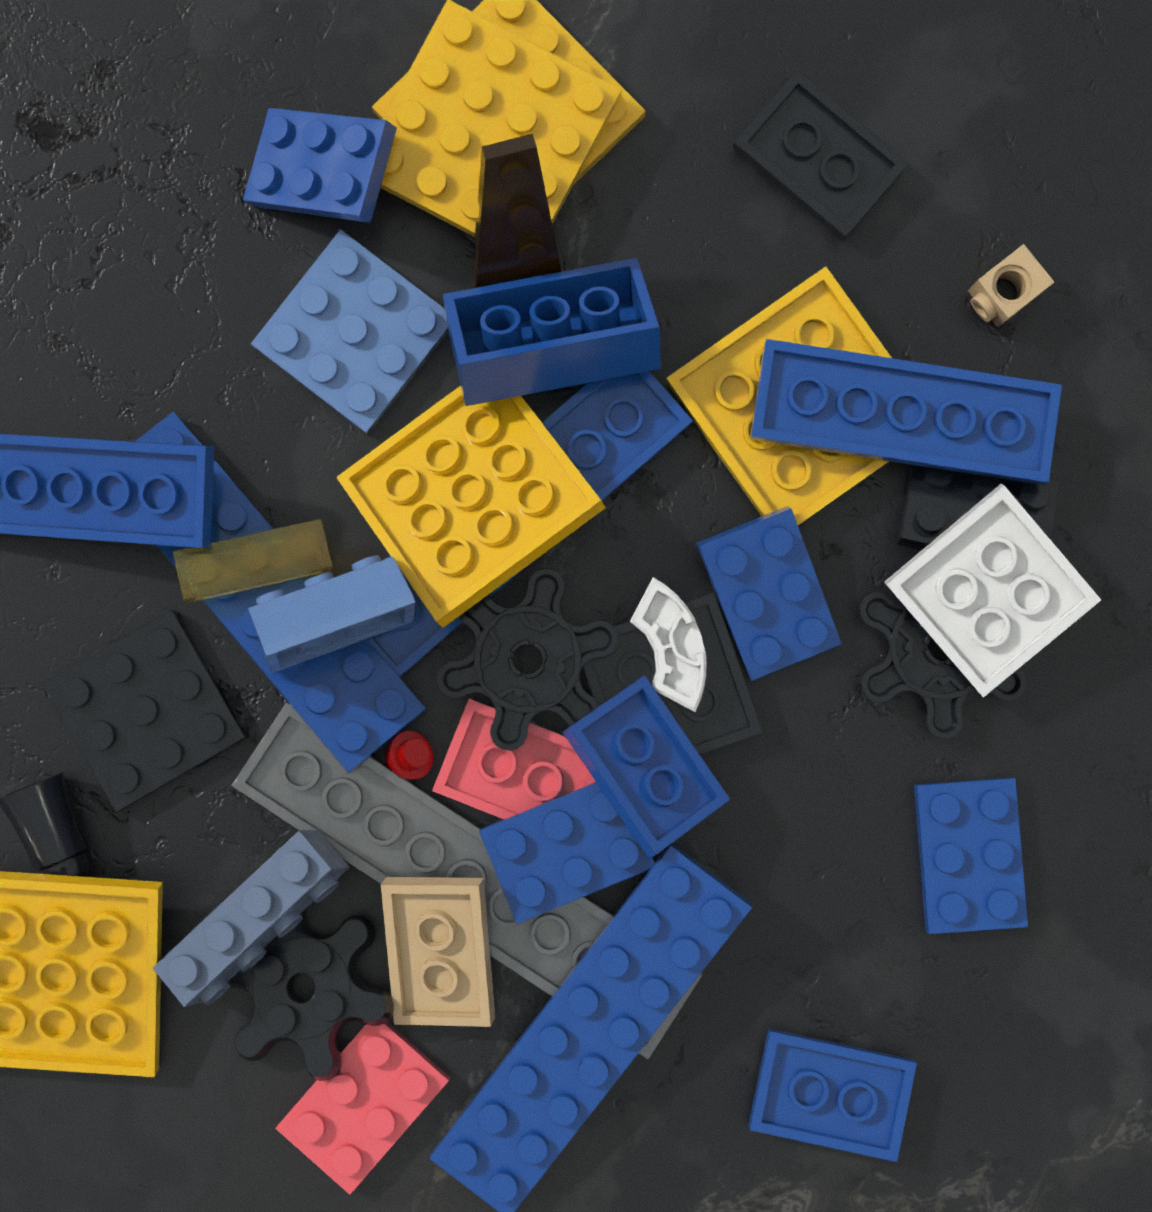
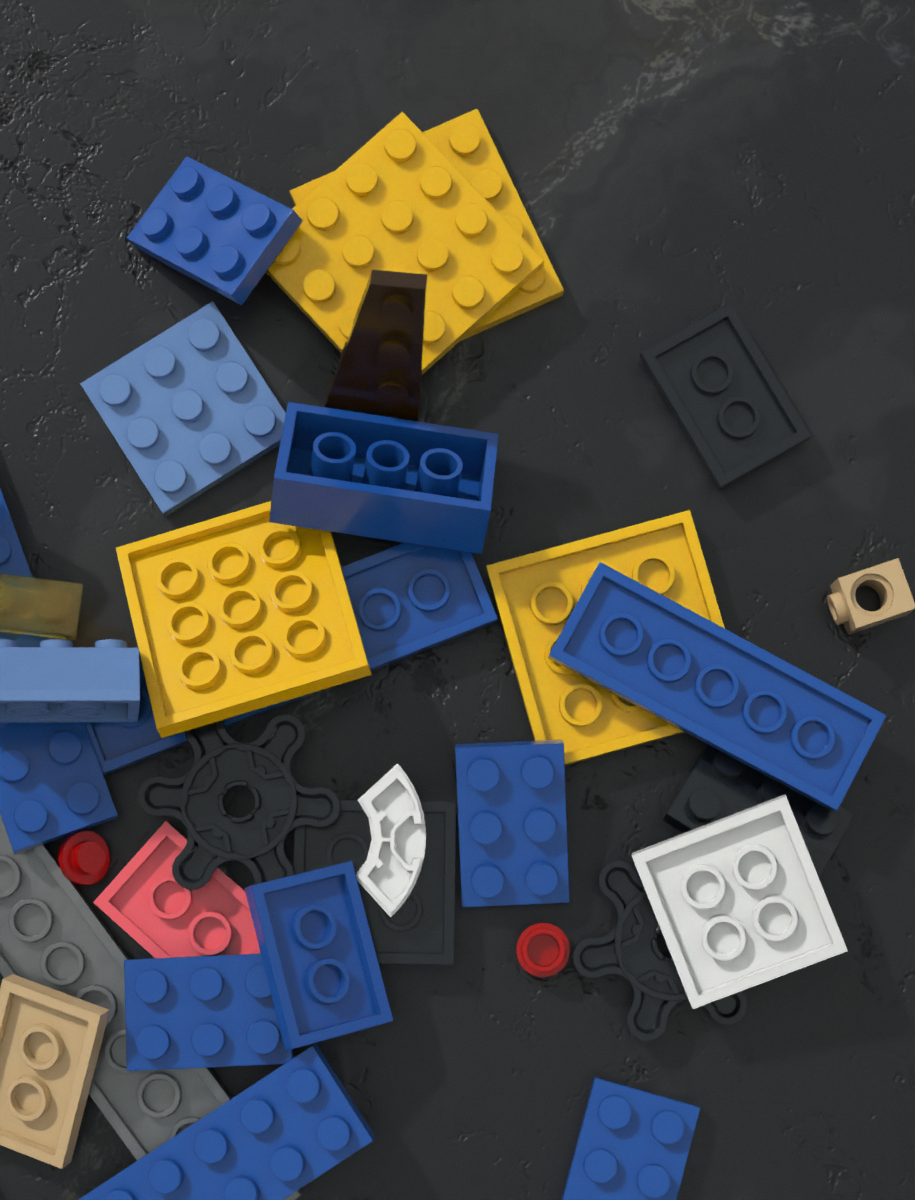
camera: 20 degrees right, 5 degrees down
(833, 692) = (543, 949): none -> red plate

